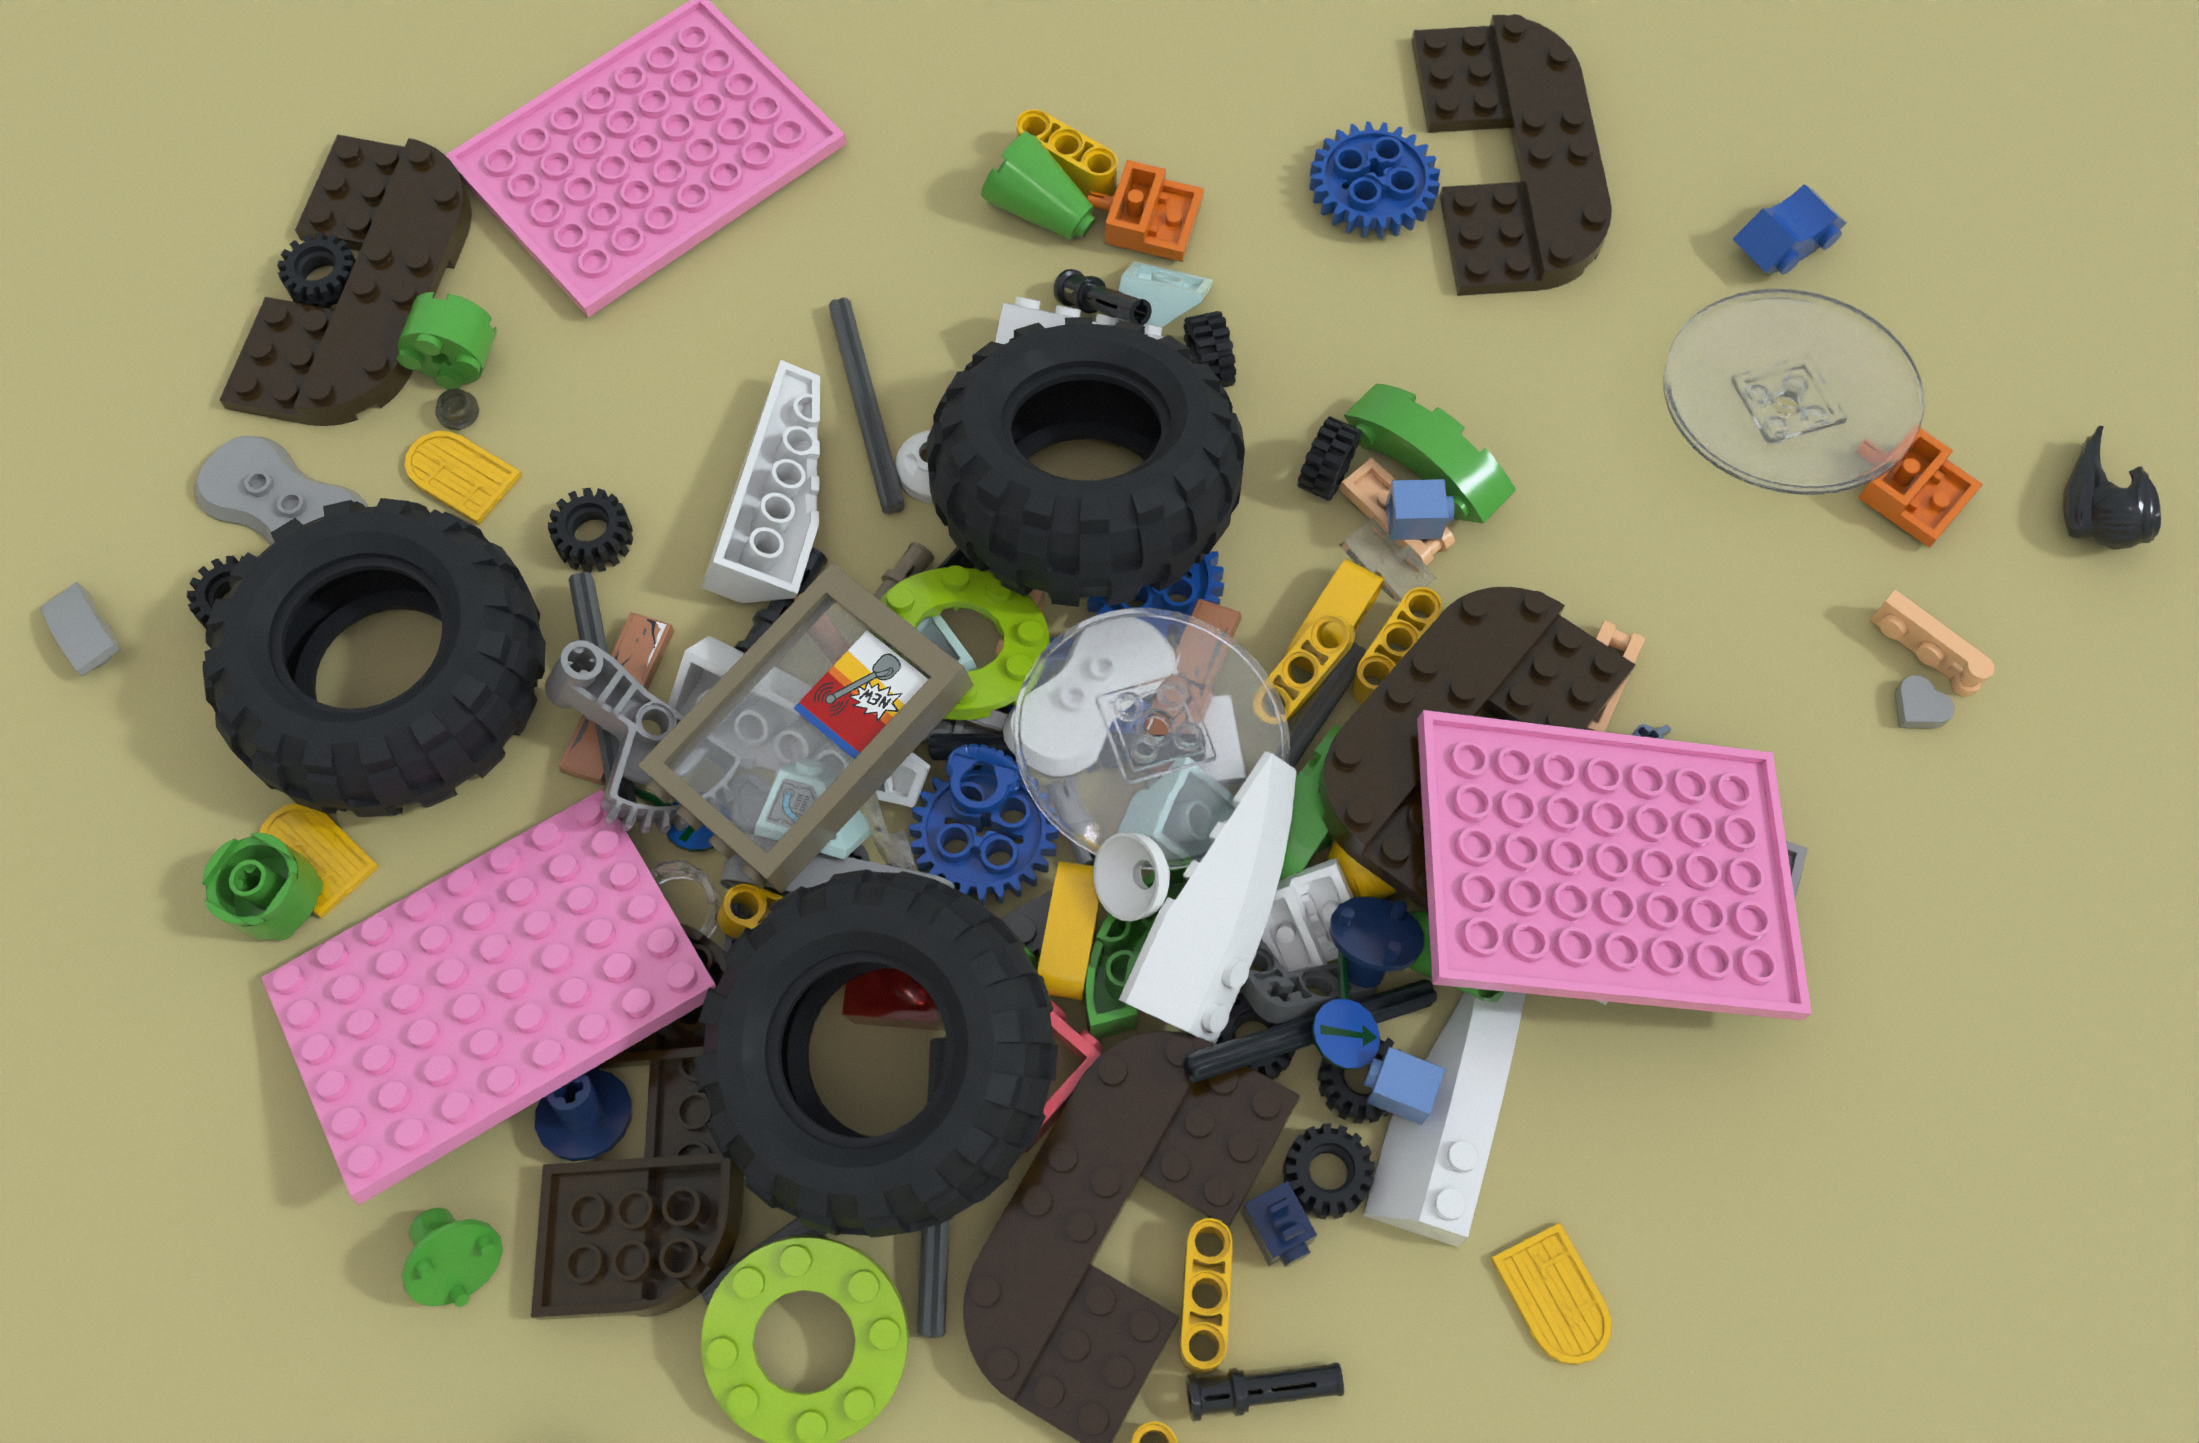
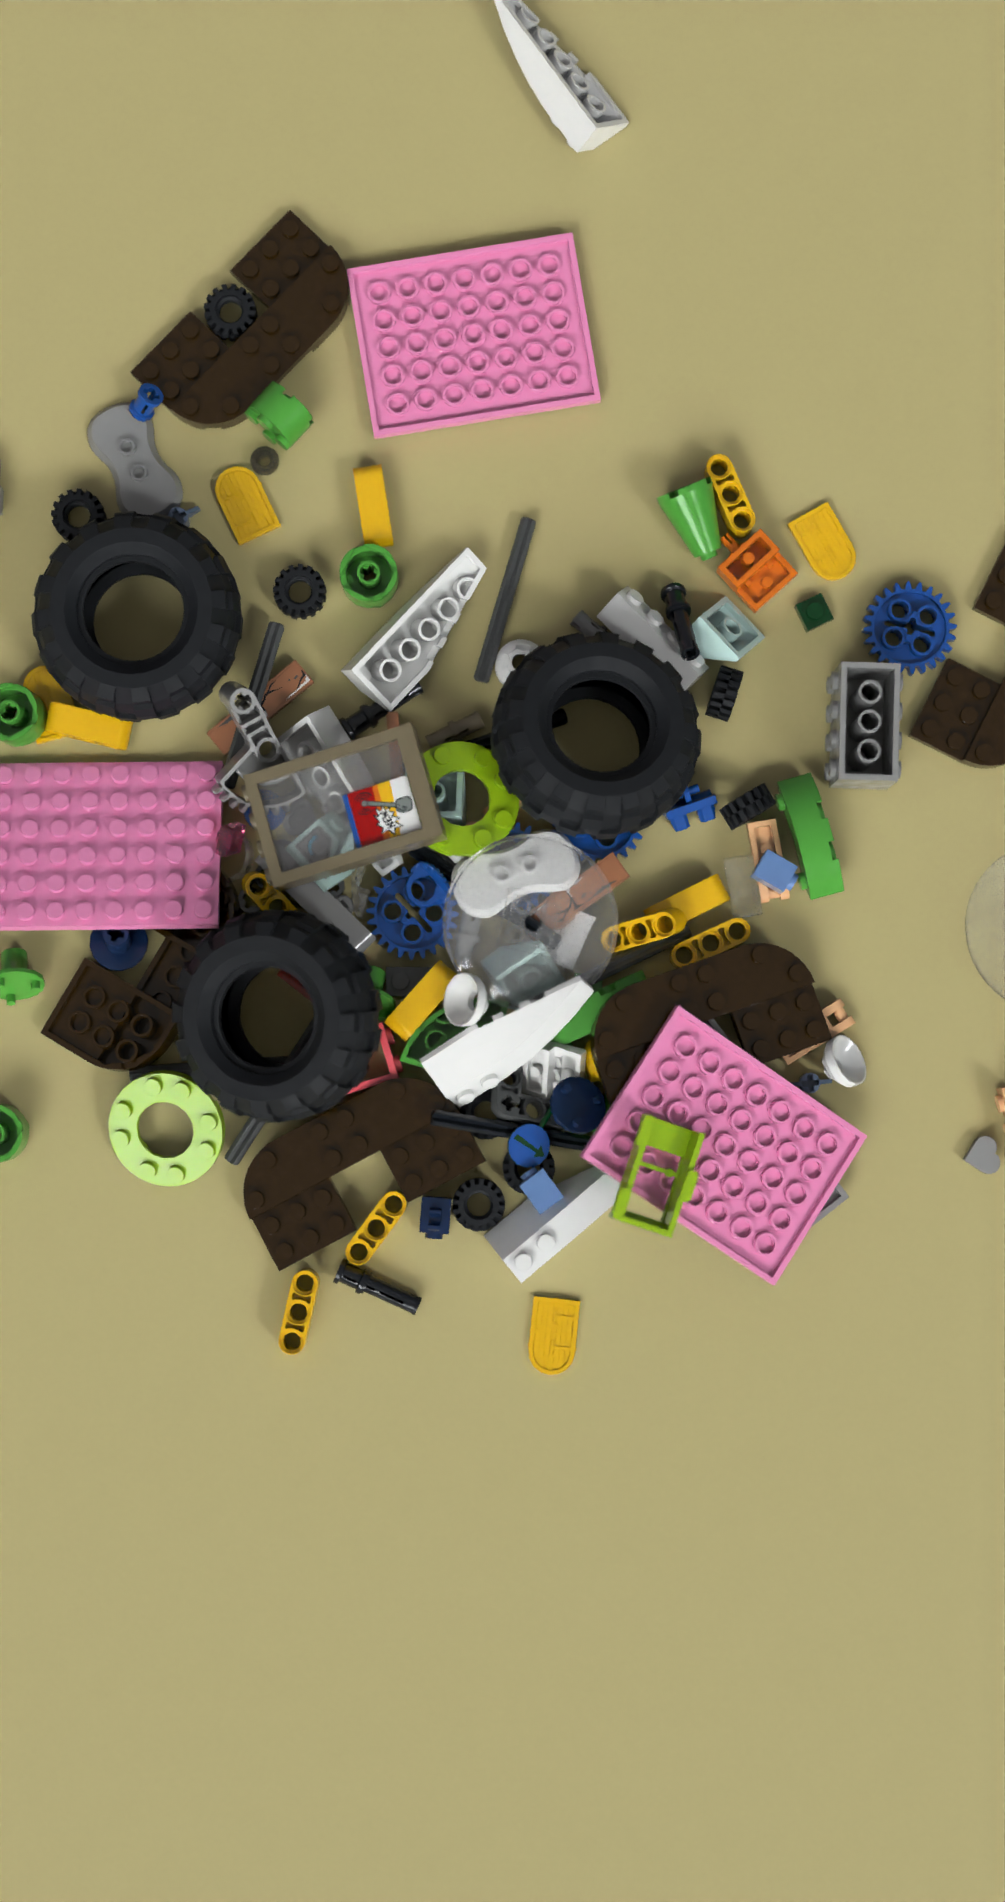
camera: 30 degrees right, 20 degrees up
(254, 403) = (143, 401): none -> blue bush
(381, 846) = (88, 726): none -> yellow beam
(631, 386) = (373, 505): none -> yellow beam
(668, 870) = (230, 839): none -> clear pink plate
(672, 459) = (362, 561): none -> bright green brick
(1210, 152) = (824, 543): none -> yellow window
(1251, 225) = (813, 612): none -> dark green plate
(1271, 494) = (701, 802): none -> blue hips
(1405, 288) = (864, 725): none -> light grey brick
(1597, 924) = (670, 1139): none -> lime piece
(1668, 691) = (844, 1061): none -> white piece

